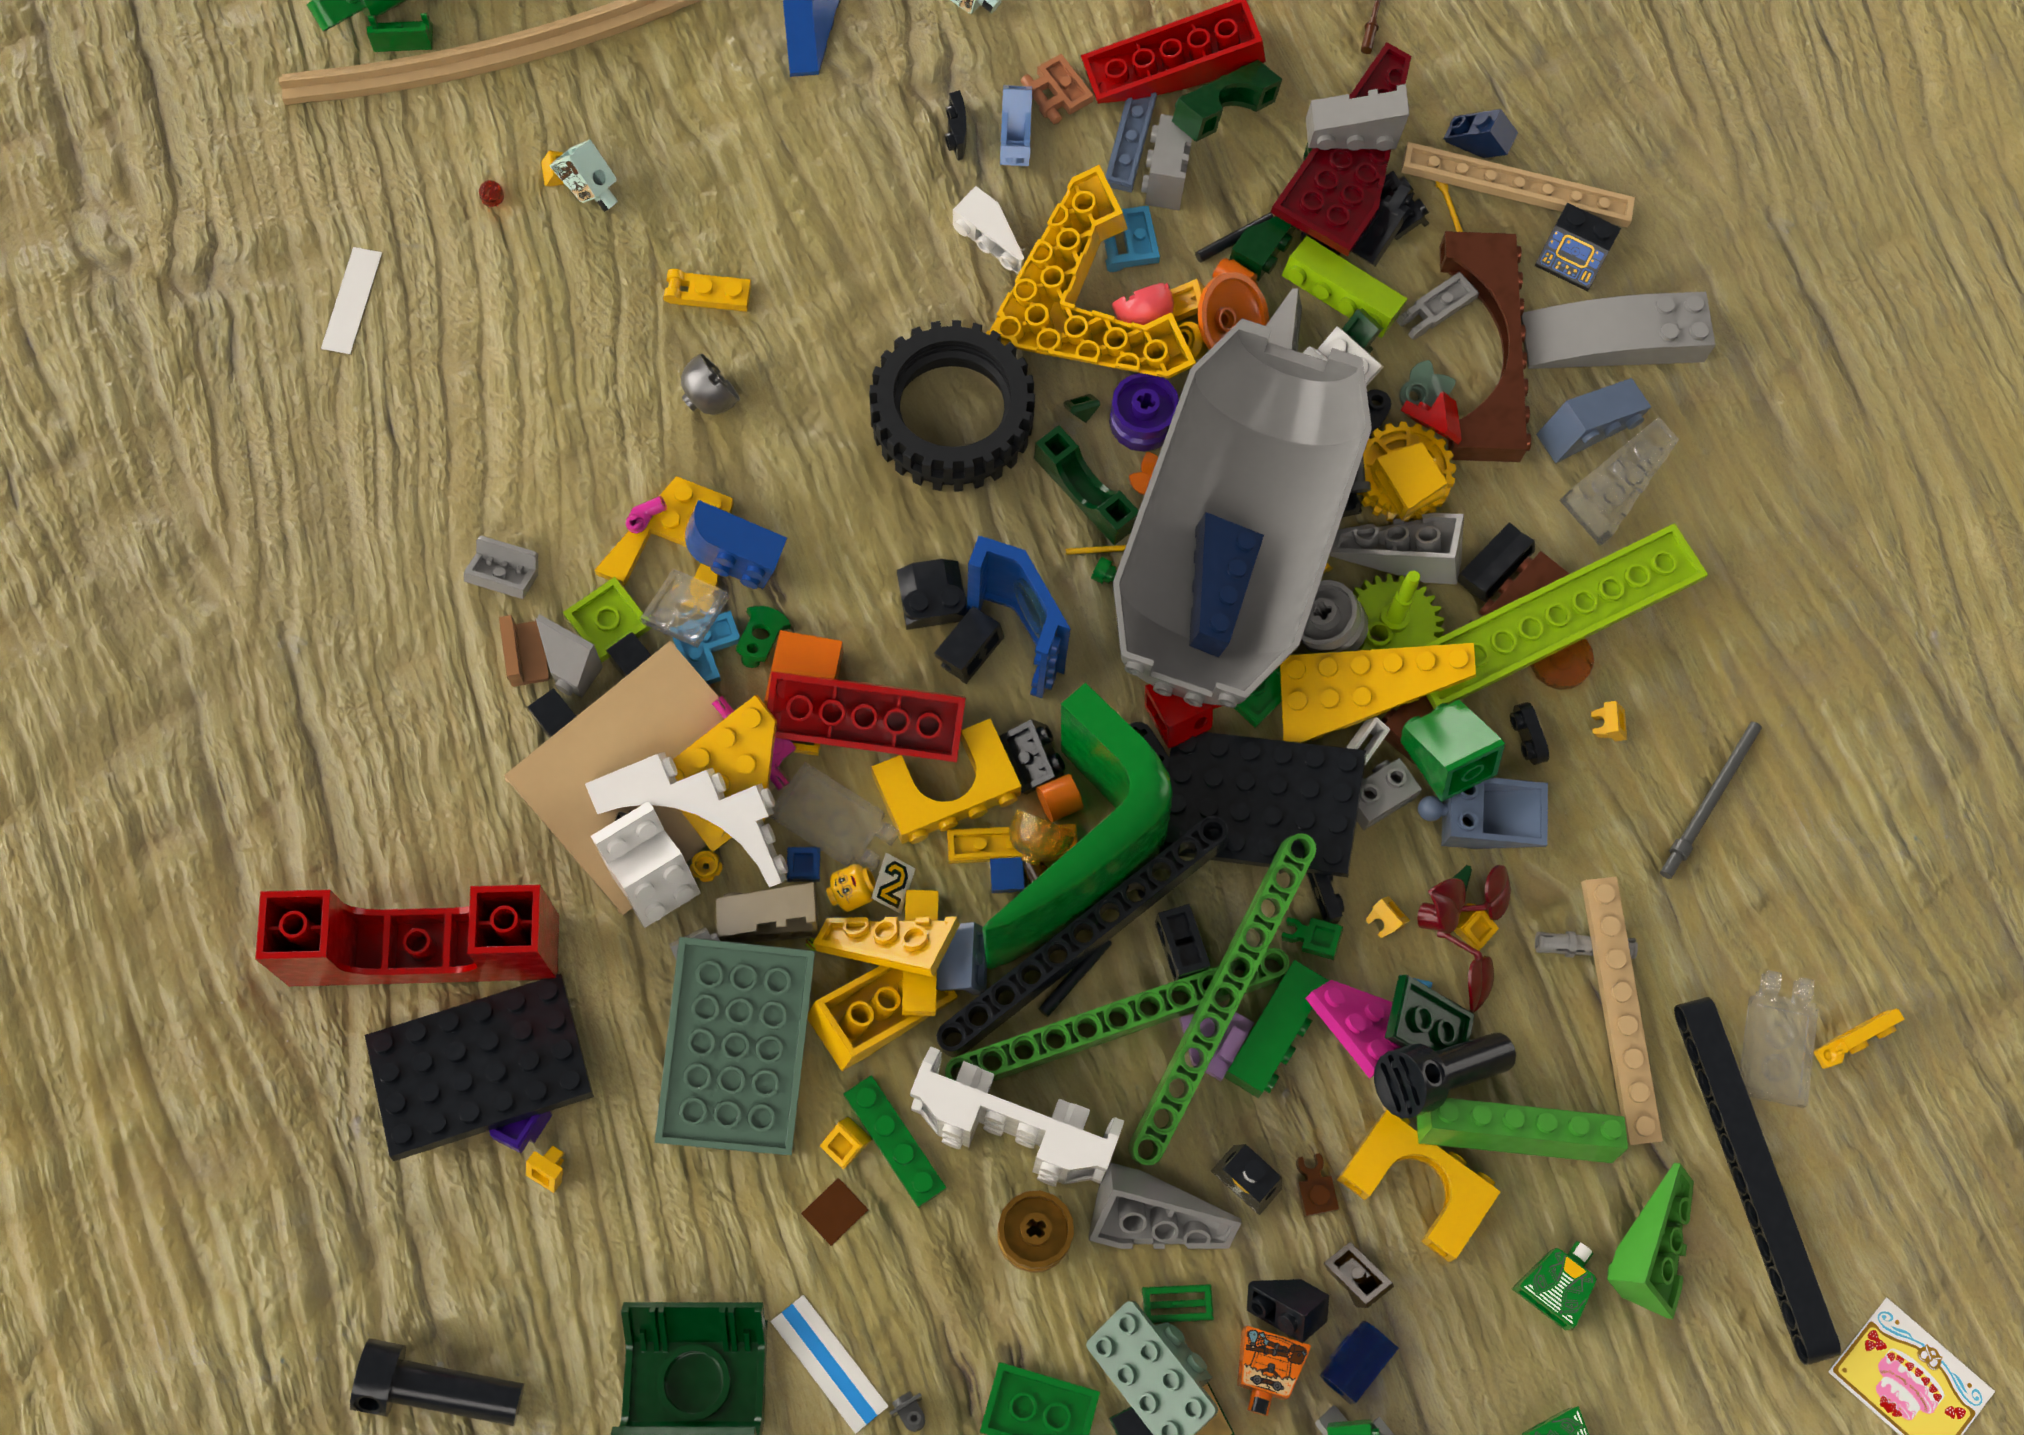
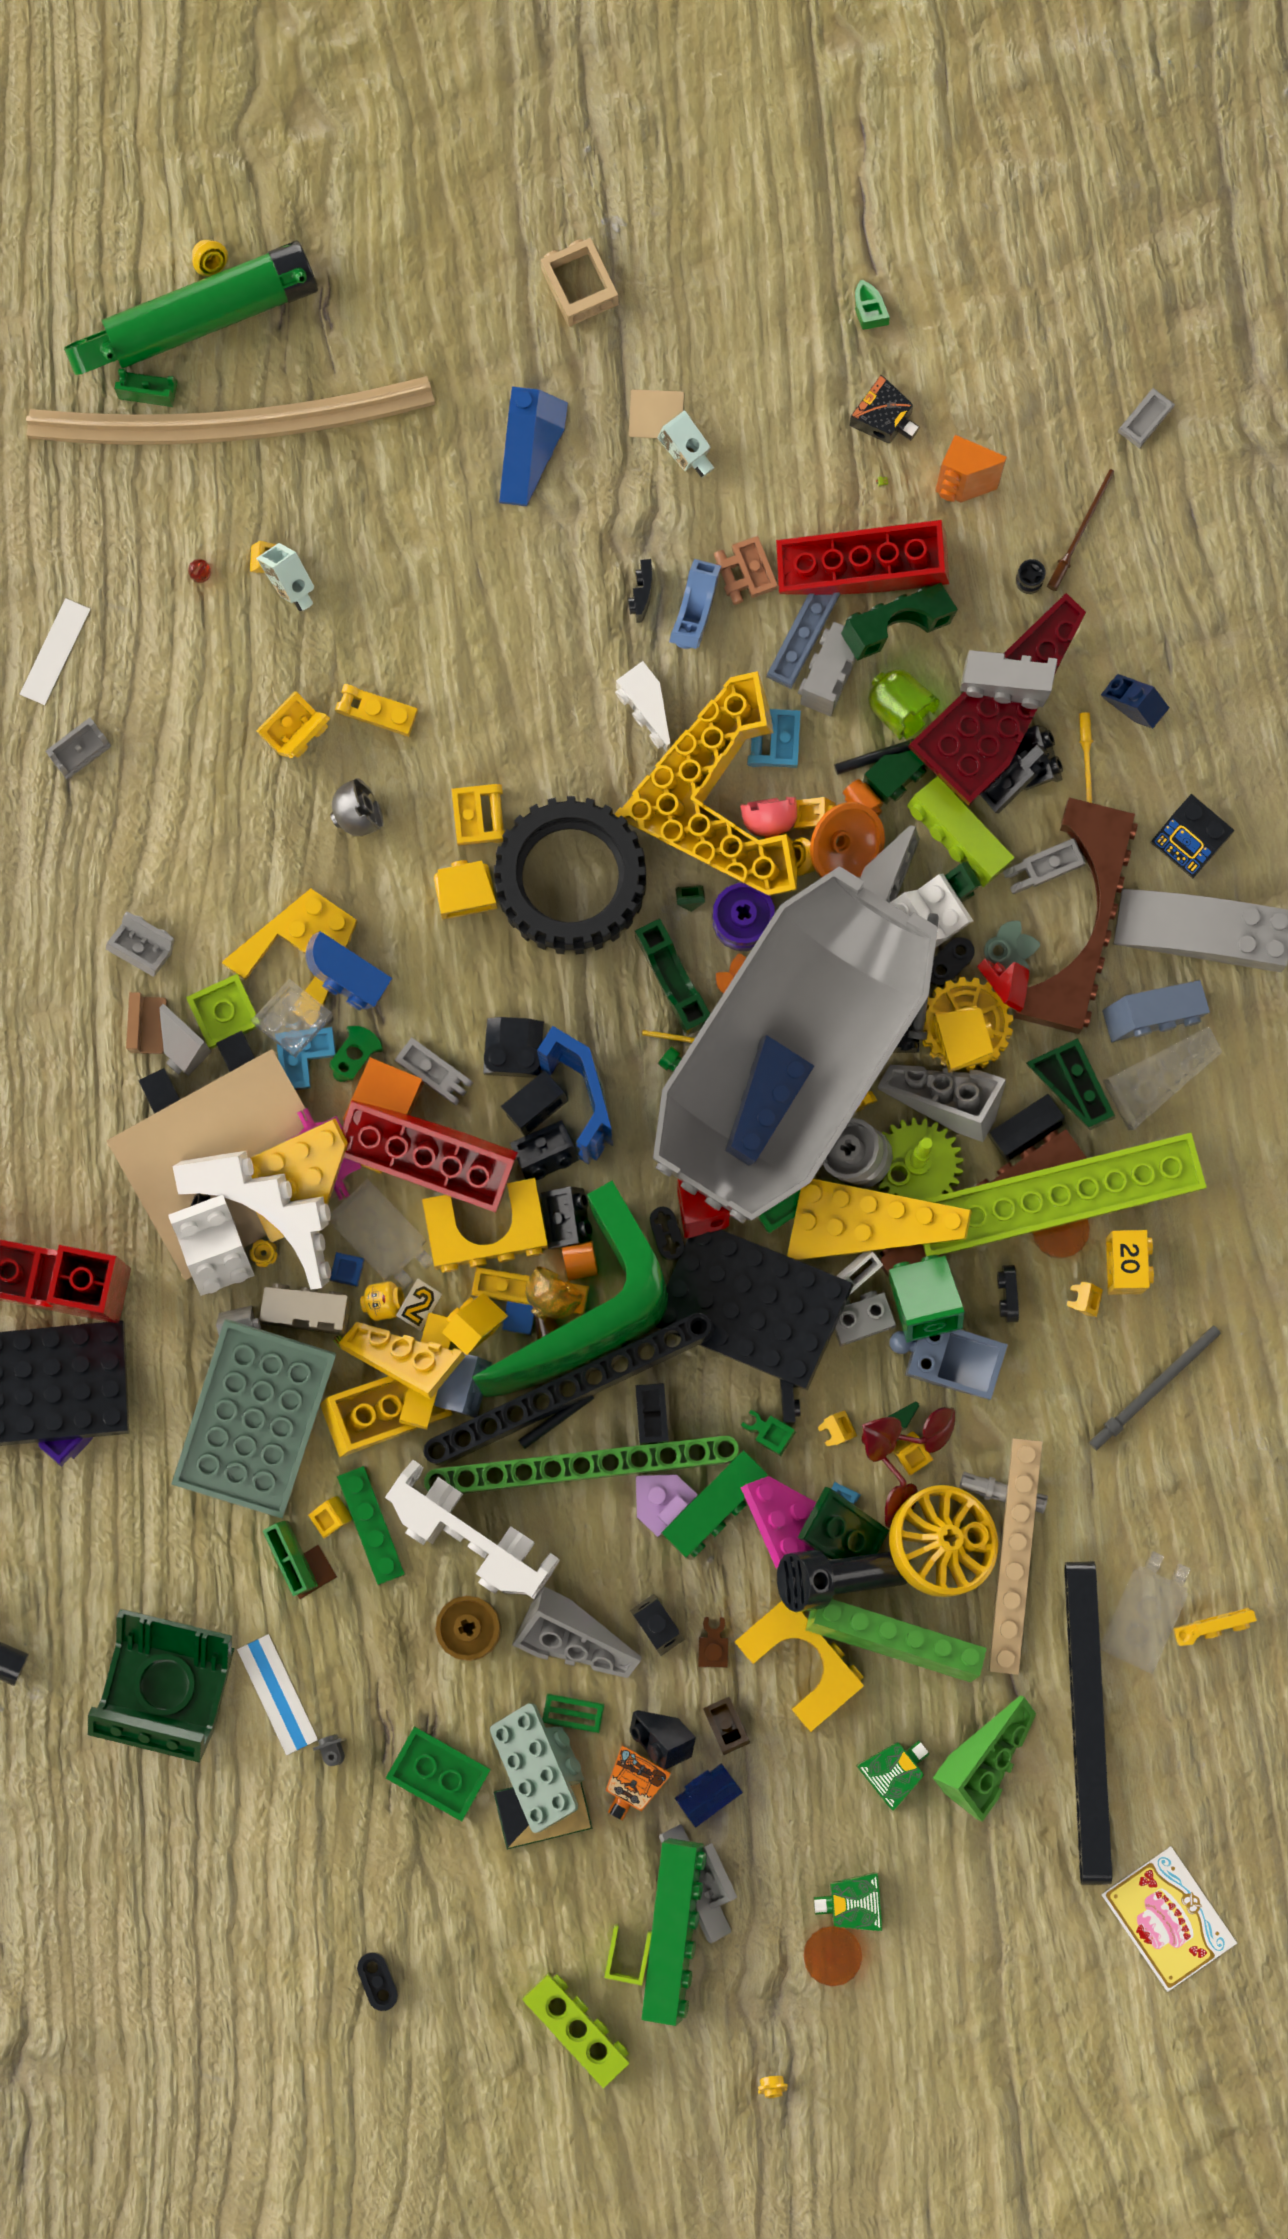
camera: 20 degrees right, 10 degrees up
(394, 386) = (78, 748): none -> light grey hinge
(546, 1169) = (79, 1483): yellow tile -> none
(621, 319) = (293, 726): none -> yellow bracket
(642, 514) = (273, 919): dark pink arm -> none
(815, 1194) = (290, 1558): none -> green piece
(830, 372) = (469, 814): none -> yellow plate
(842, 444) = (464, 889): none -> yellow torso
(857, 636) = (432, 1070): none -> light grey hinge
(960, 886) = (473, 1323): none -> yellow piece
(994, 691) = (545, 1151): none -> black bracket
(1208, 1006) = (663, 1483): bright green beam -> none
(1250, 175) = (901, 702): none -> clear neon green cylinder
(1343, 41) = (1032, 571): none -> black wheel
(1515, 183) = (1154, 761): tan plate -> none
(1535, 505) = (1073, 1081): none -> dark green wedge
(1543, 1008) = (945, 1552): none -> yellow piece
(1647, 671) = (1128, 1262): none -> yellow brick

